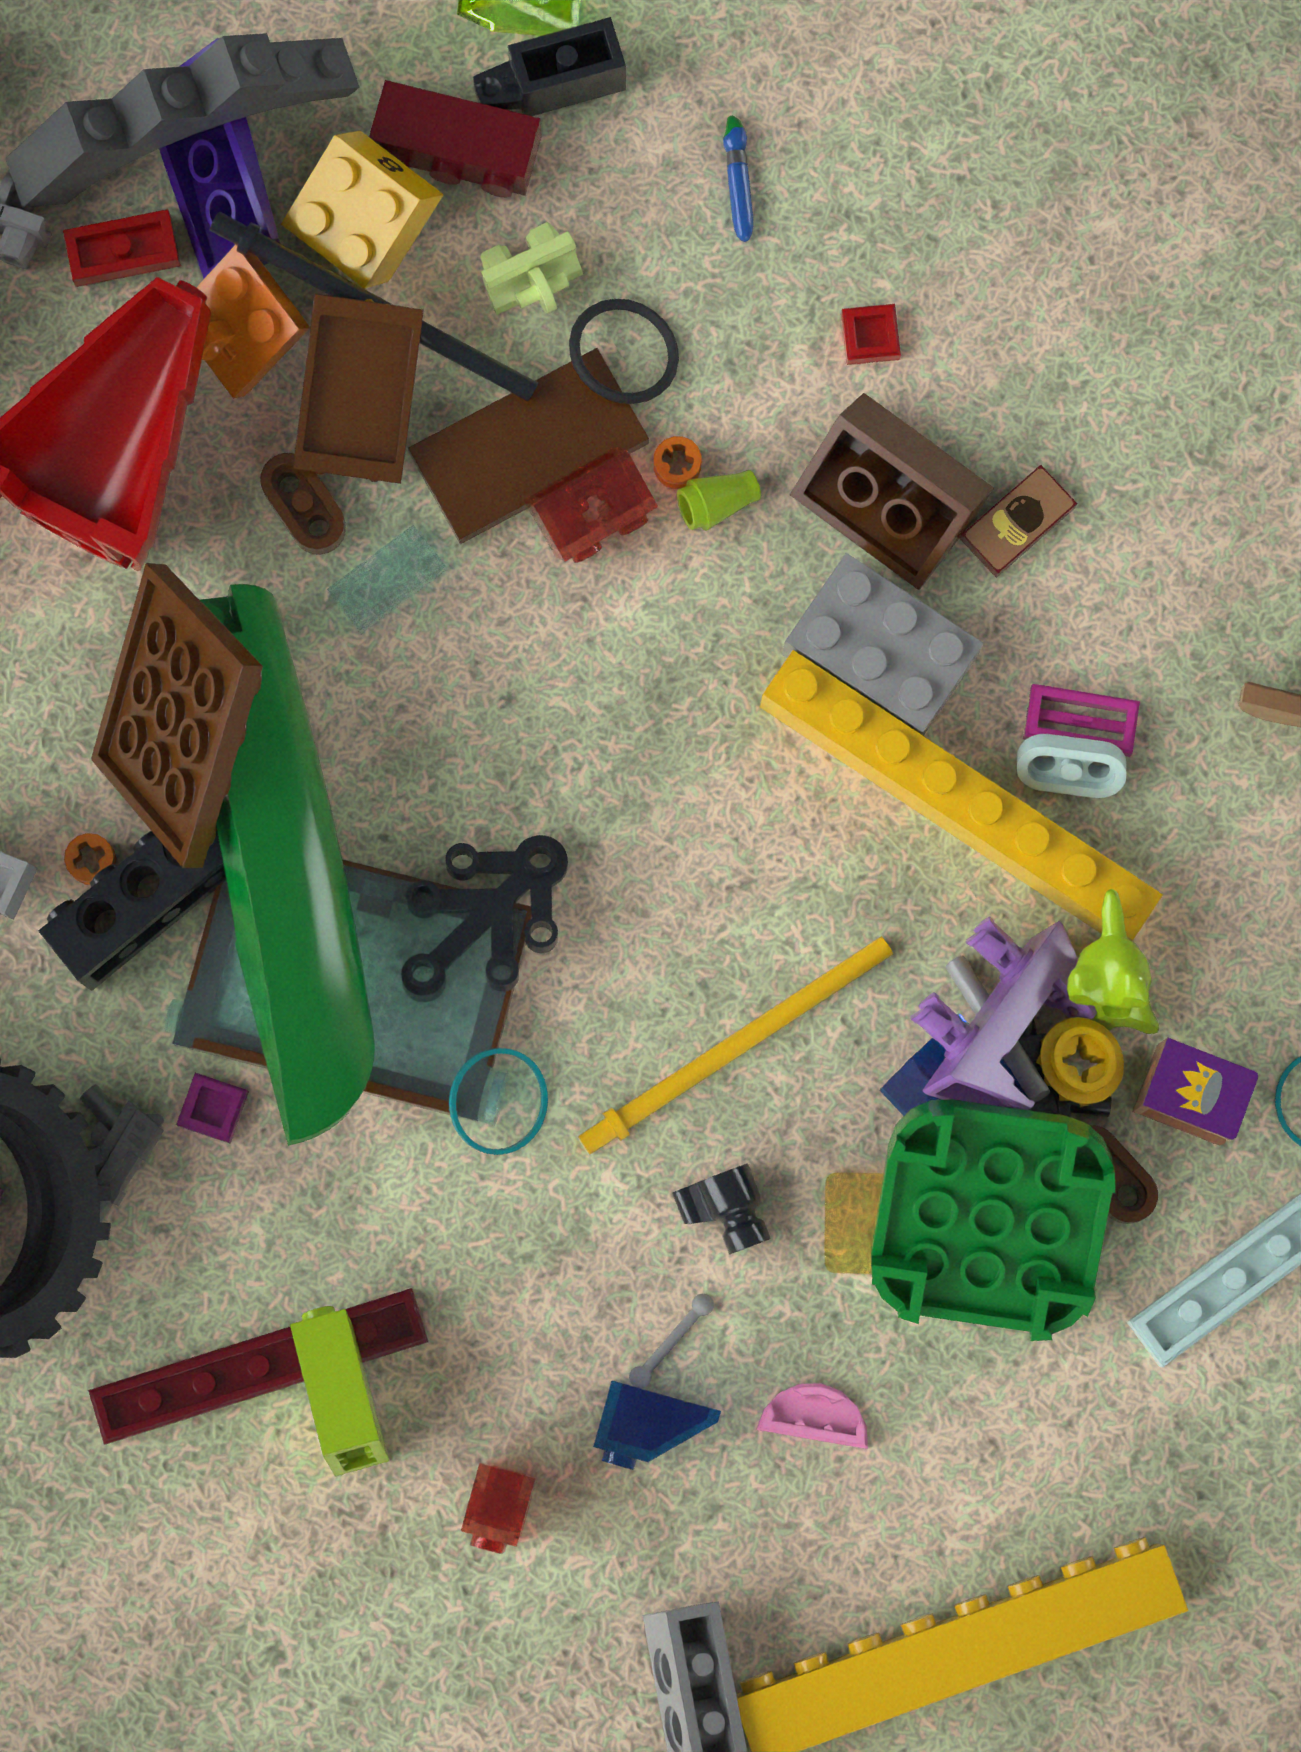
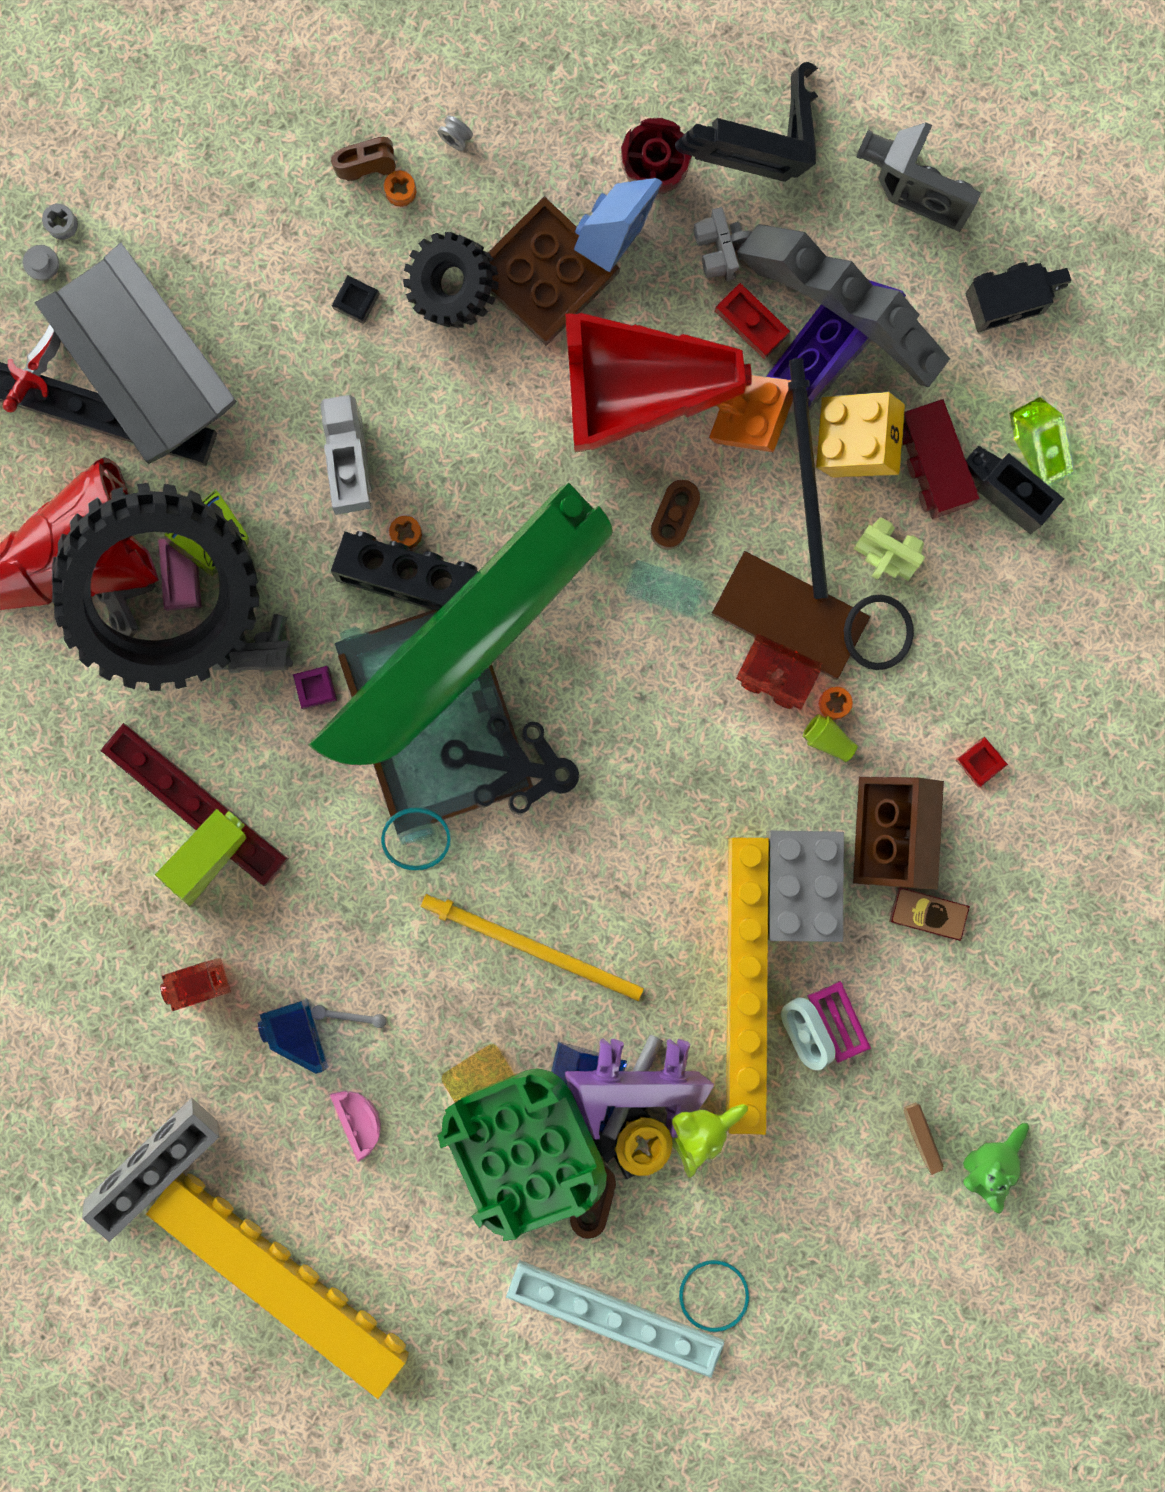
camera: 65 degrees right, 5 degrees up
(176, 714) = (503, 526): reddish brown plate -> none
(358, 388) = (756, 501): reddish brown piece -> none
(727, 1199) = (444, 1000): black piece -> none
(738, 178) = (1020, 631): blue piece -> none
(1195, 1092) = (668, 1221): dark purple piece -> none

